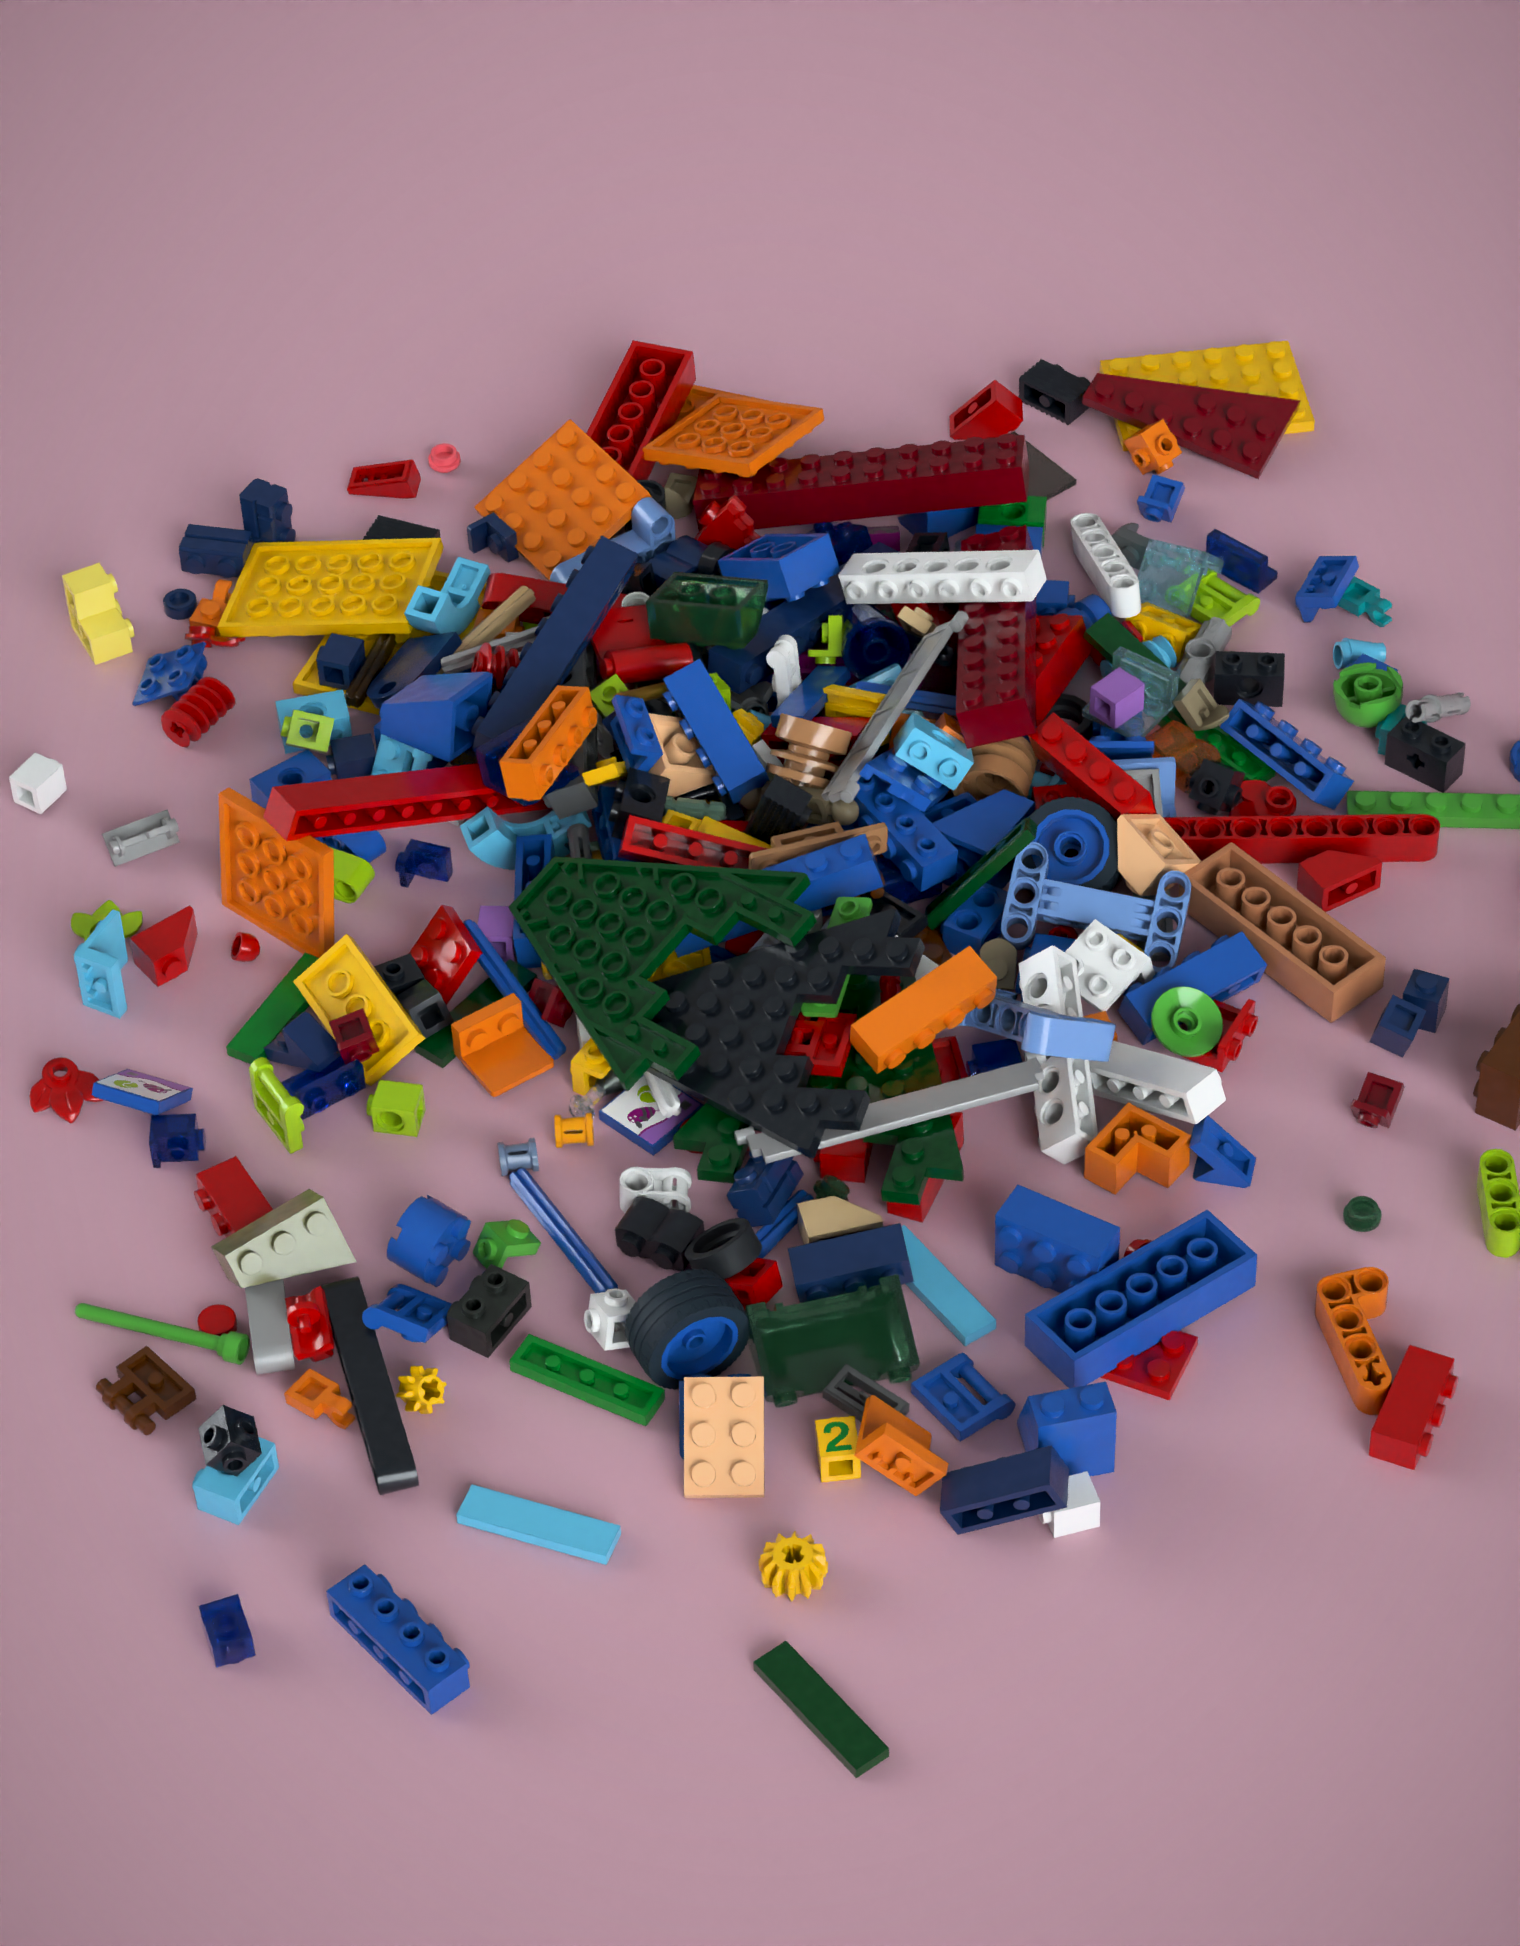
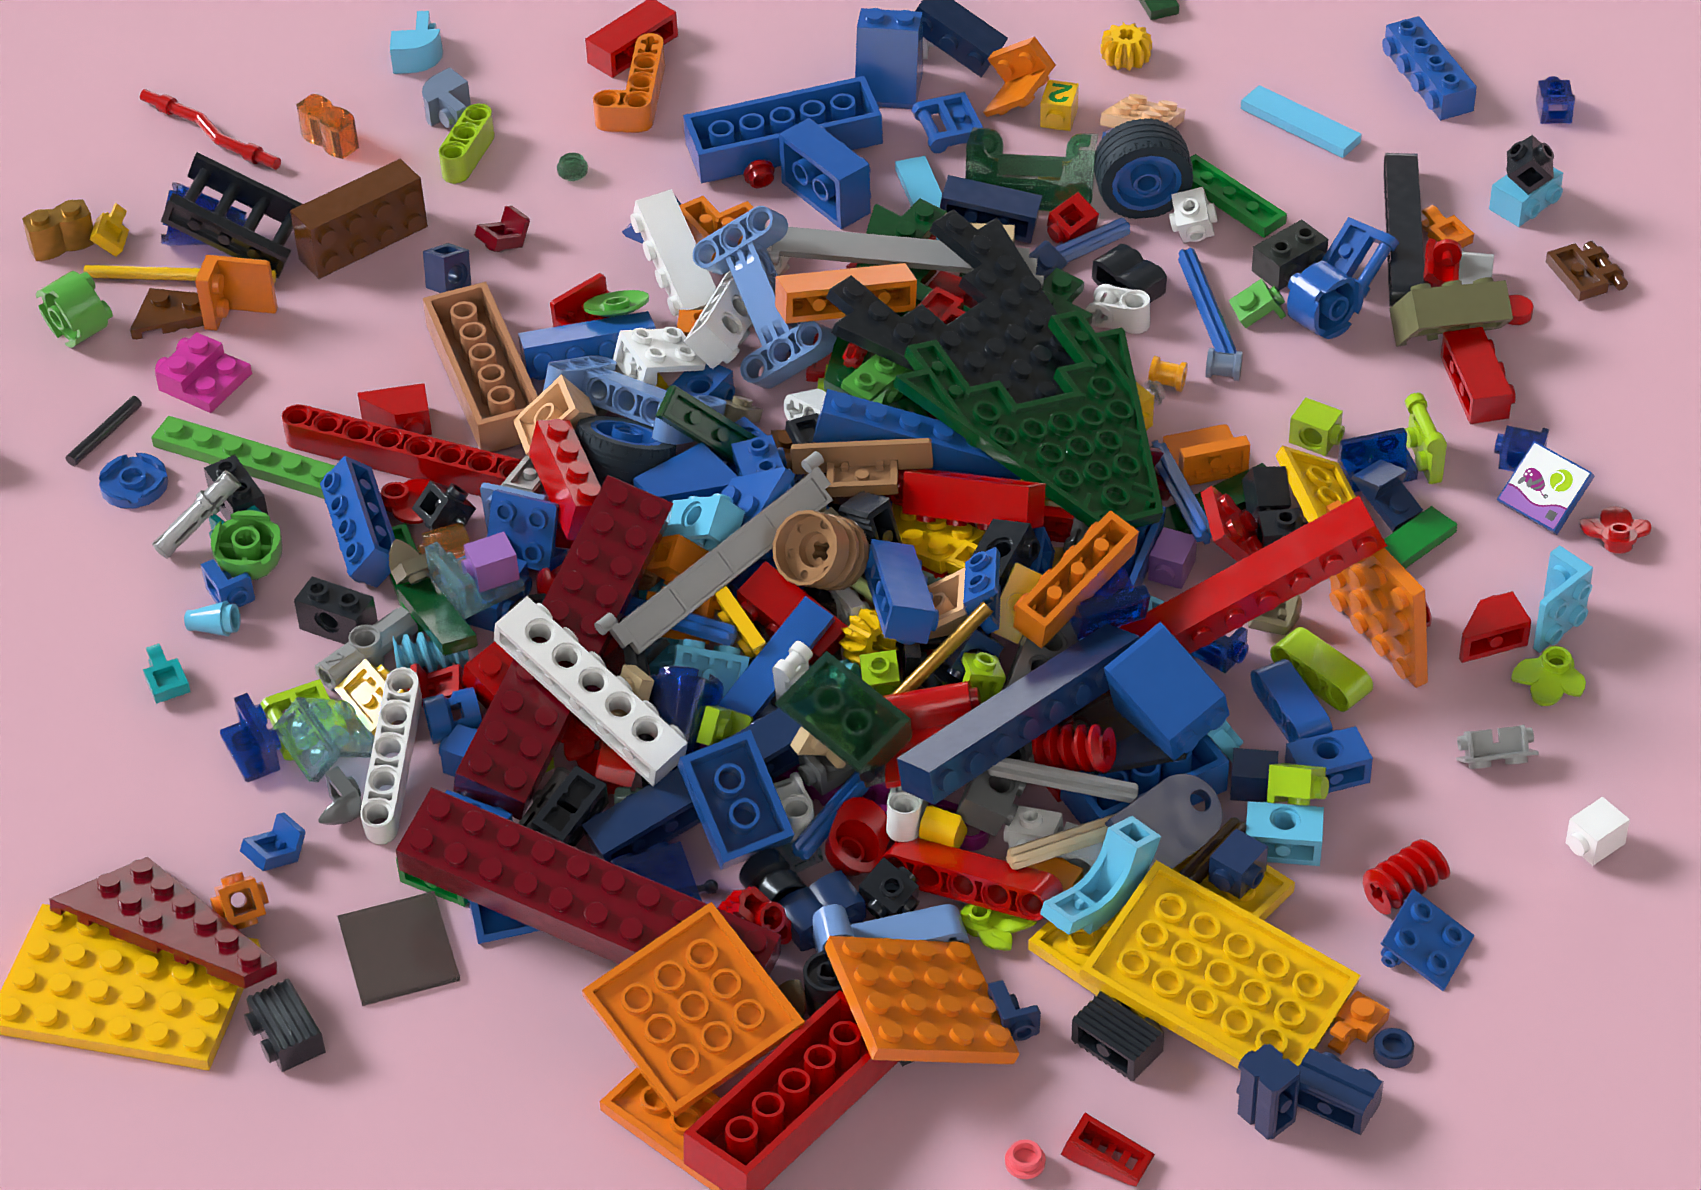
camera: 160 degrees left, 0 degrees up
(97, 614) = (1497, 1024): light yellow brick -> none
(207, 634) = (1373, 957): red plate -> none
(231, 1346) = (1516, 287): bright green piece -> none
(354, 1037) = (1340, 457): dark red bracket -> none
(381, 909) = (1280, 619): none -> dark tan plate
(421, 1389) = (1364, 208): yellow gear -> none
(725, 1248) = (1096, 210): black tyre -> none
(852, 1400) = (1016, 140): dark grey tile -> none
(987, 414) = (383, 1013): red slope -> none
(1325, 584) = (192, 681): blue bracket -> none
(1429, 993) = (405, 291): dark blue brick -> none

